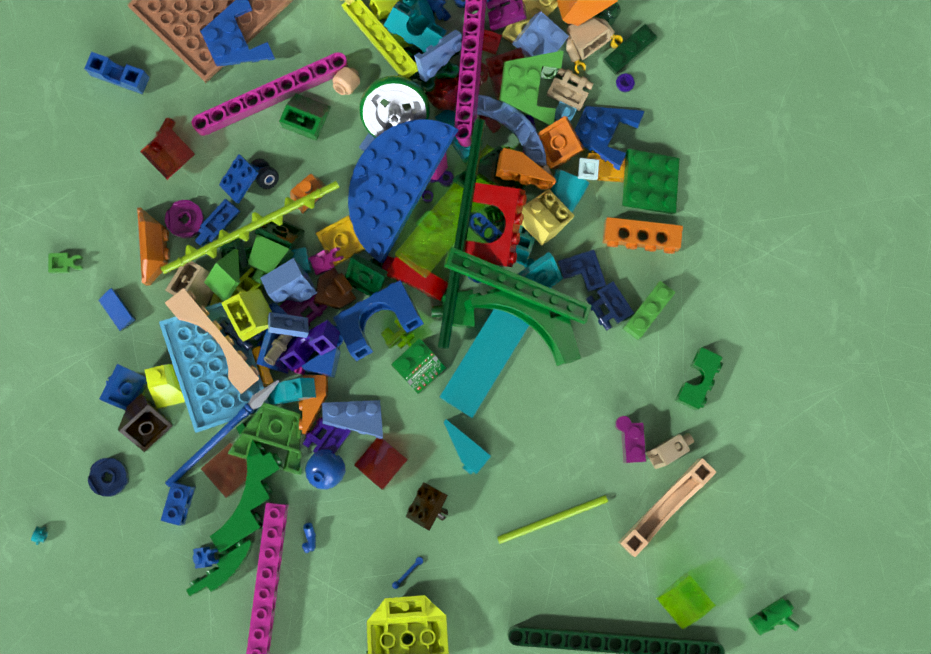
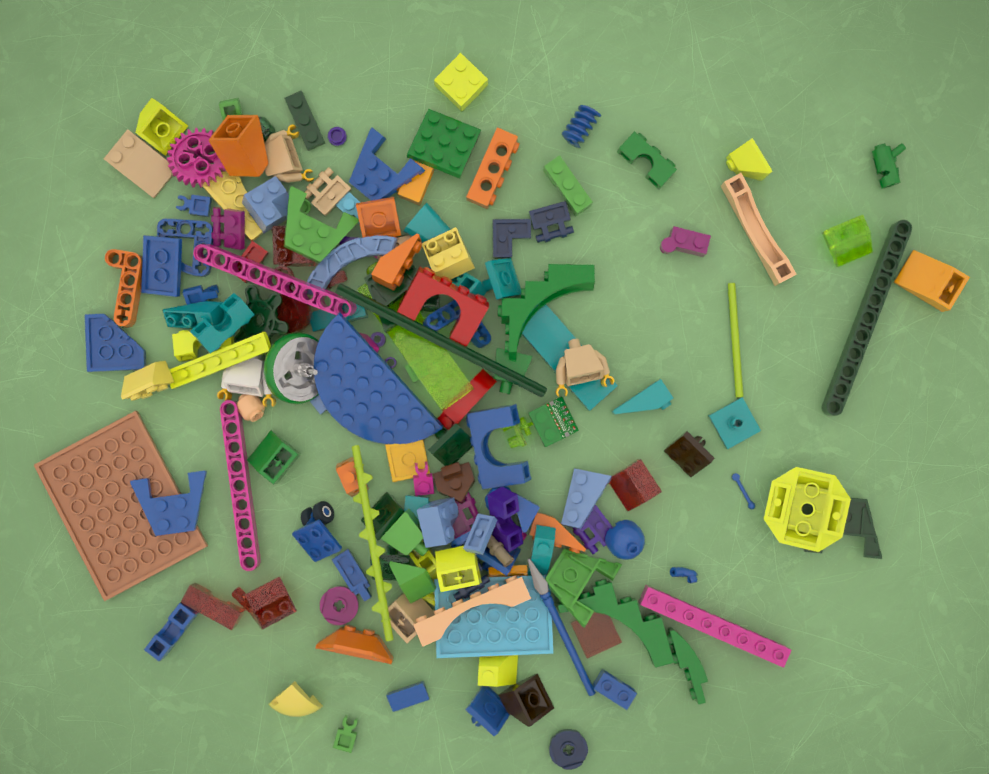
camera: 70 degrees left, 5 degrees up
(80, 206) = (295, 702): none -> light yellow brick
(146, 114) = (205, 603): none -> clear red arch
(204, 557) = (672, 678): blue plate -> none
(369, 68) = (246, 379): none -> white torso
(438, 55) = (258, 309): medium blue wing -> none
(471, 543) = (734, 423): none -> teal tile
(480, 374) = (581, 365): none -> tan torso
(517, 285) = (509, 303): green plate -> none
(588, 169) = (415, 199): light aqua plate -> none
(669, 450) = (706, 209): tan torso -> none
(711, 304) = (580, 124): none -> blue piece
(714, 180) = (461, 82): none -> neon yellow brick
(730, 476) = (749, 161): none -> neon yellow slope

